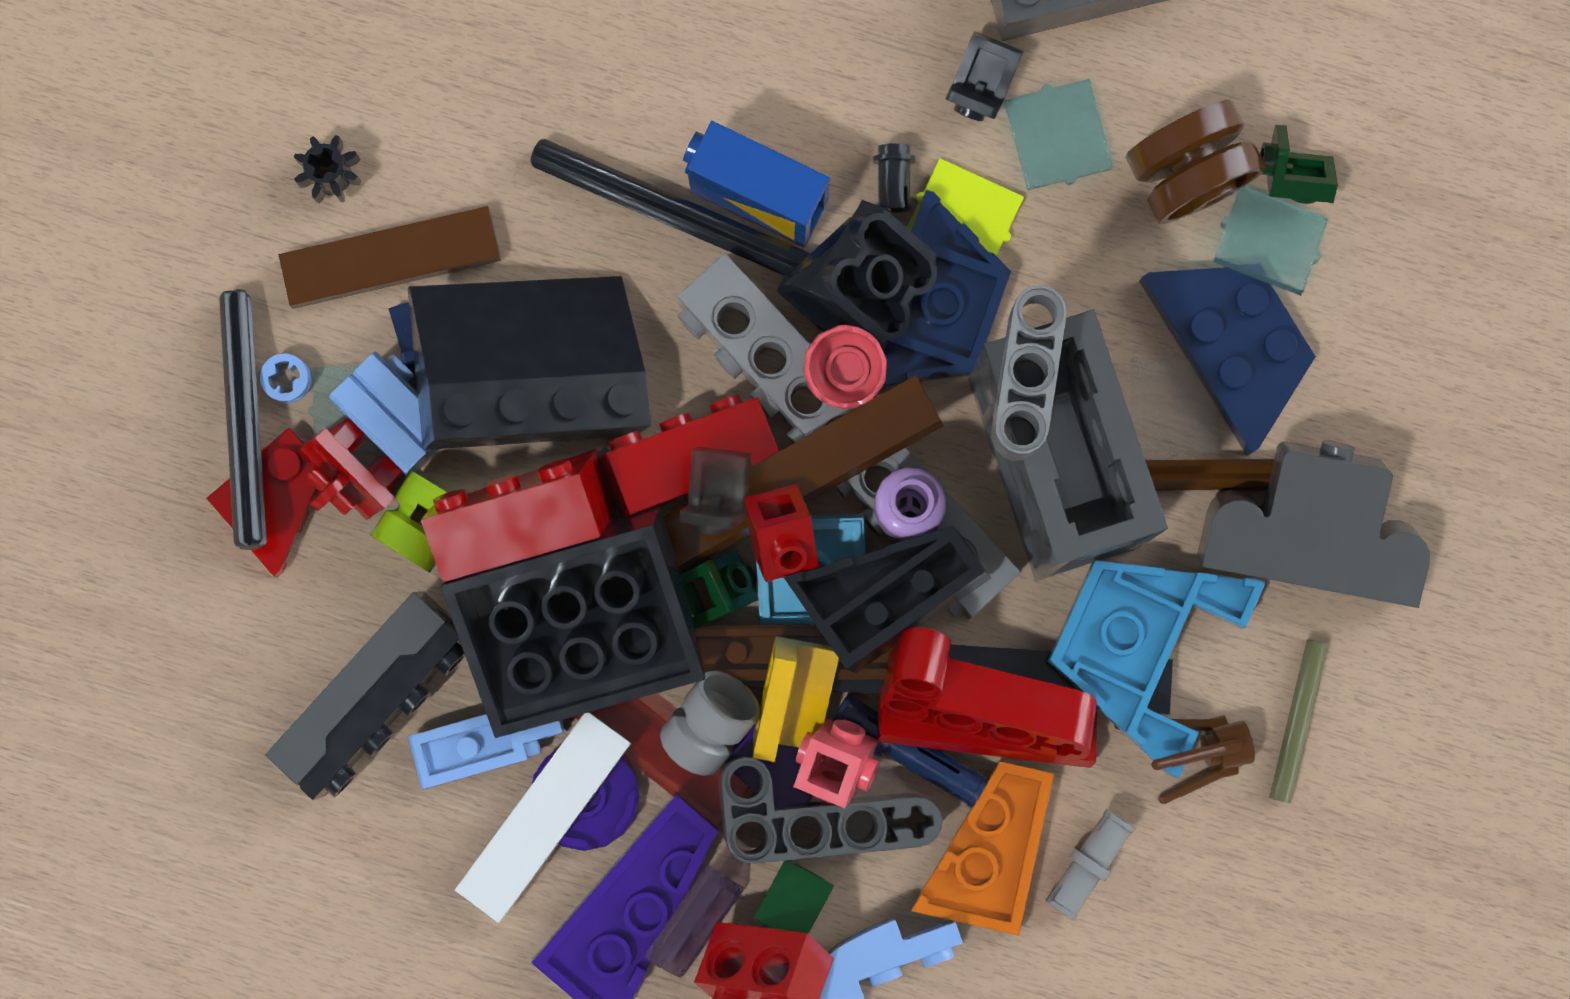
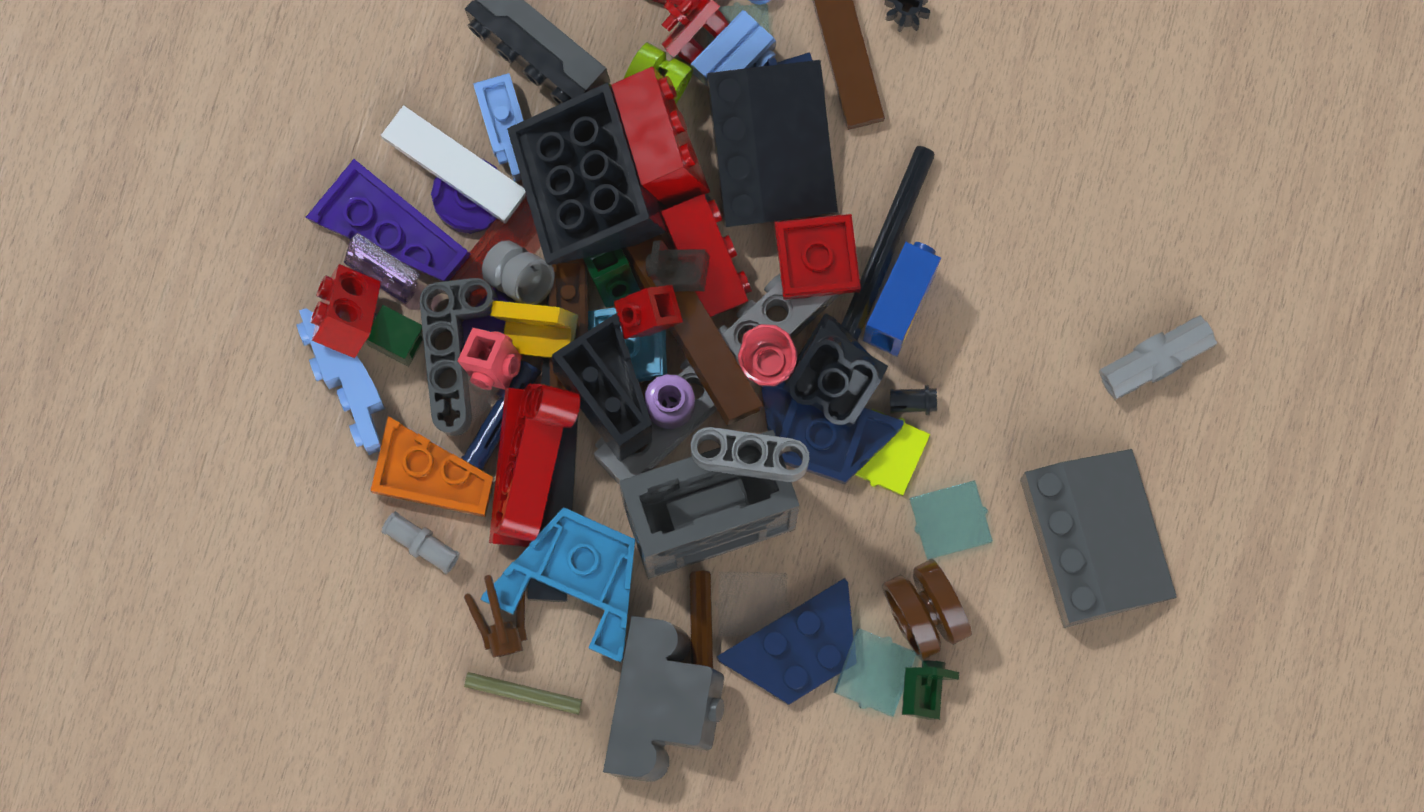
camera: 90 degrees right, 5 degrees down
(697, 298) = (817, 257): none -> red tile
(983, 77) = (988, 461): black bracket -> none

